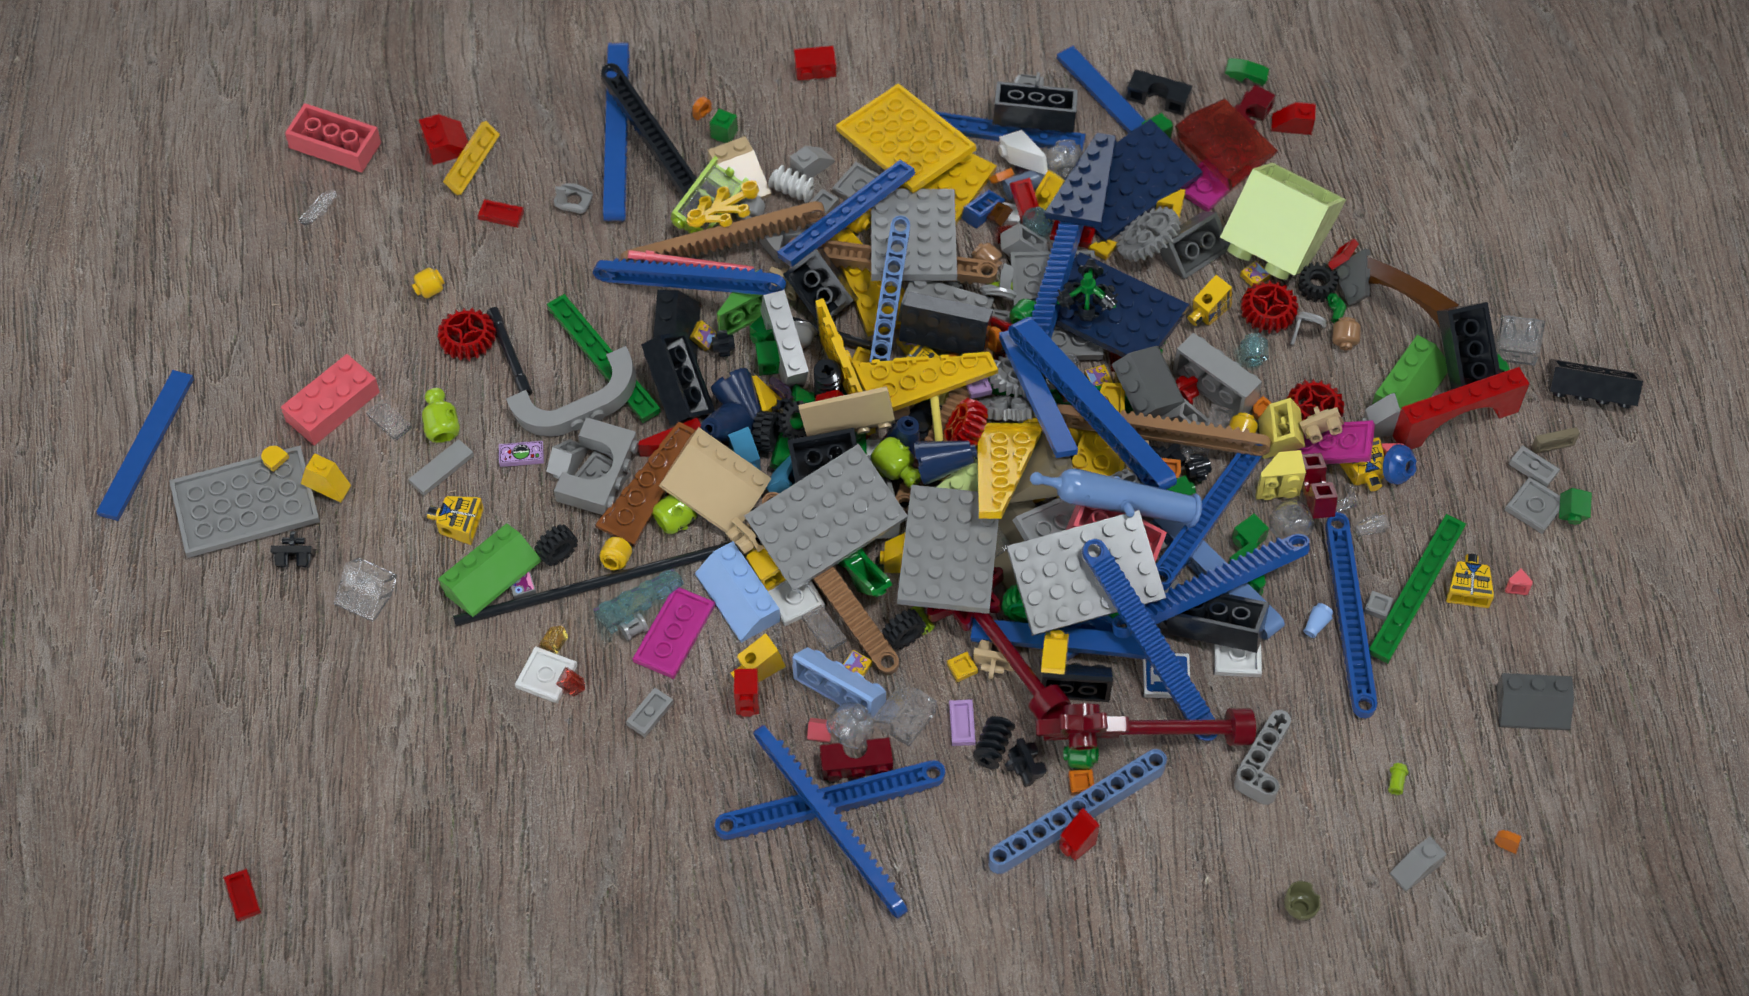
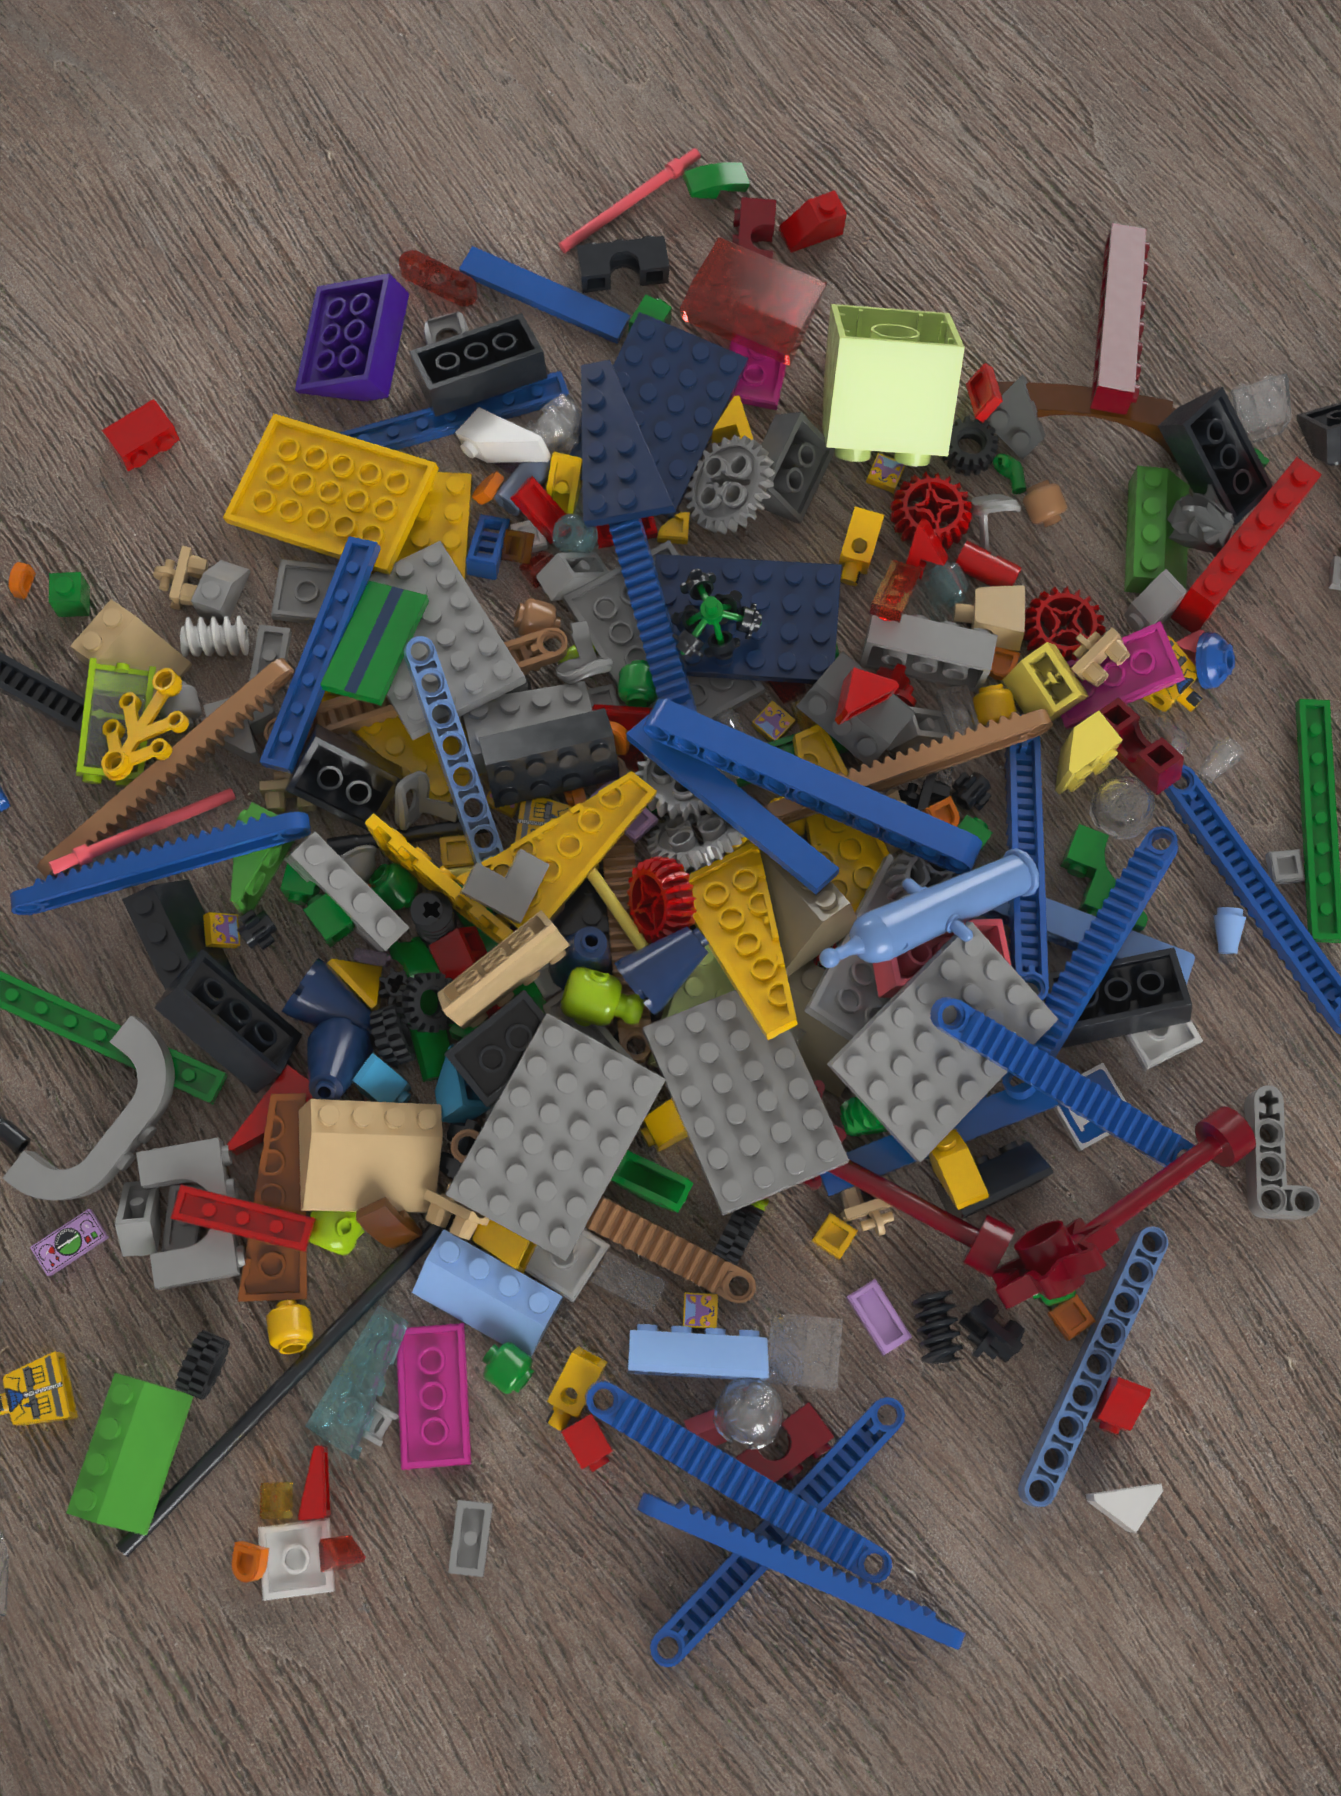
camera: 35 degrees left, 15 degrees up
(520, 660) = (249, 1561): none -> orange tile
(523, 586) = (190, 1444): tile -> none
(579, 642) = (316, 1493): none -> red slope
(624, 478) = (243, 1218): none -> red tile
(702, 524) = (388, 1224): none -> reddish brown slope
(725, 634) = (507, 1367): none -> green head
(790, 143) = (187, 566): none -> tan hips
(813, 353) = (394, 885): none -> green head
(821, 753) = (738, 1482): none -> blue gear
(858, 322) = (421, 802): none -> light grey piece
(872, 377) = (507, 894): none -> light grey tile
(874, 222) = (374, 643): none -> green tile
(970, 65) = (353, 339): none -> dark purple slope
(1041, 62) = (445, 289): none -> clear red beam
(1051, 895) = (1127, 1505): none -> white slope
(1154, 370) = (861, 692): none -> red slope
(1212, 330) = (895, 591): none -> clear red plate
(1223, 55) = (672, 170): none -> coral bar
(1248, 318) = (926, 547): none -> red slope
(1276, 378) = (997, 611): none -> tan torso
(1286, 352) = (985, 567): none -> red pin
(1435, 378) = (1201, 522): none -> dark grey hair
(1455, 247) = (1119, 320): none -> brick

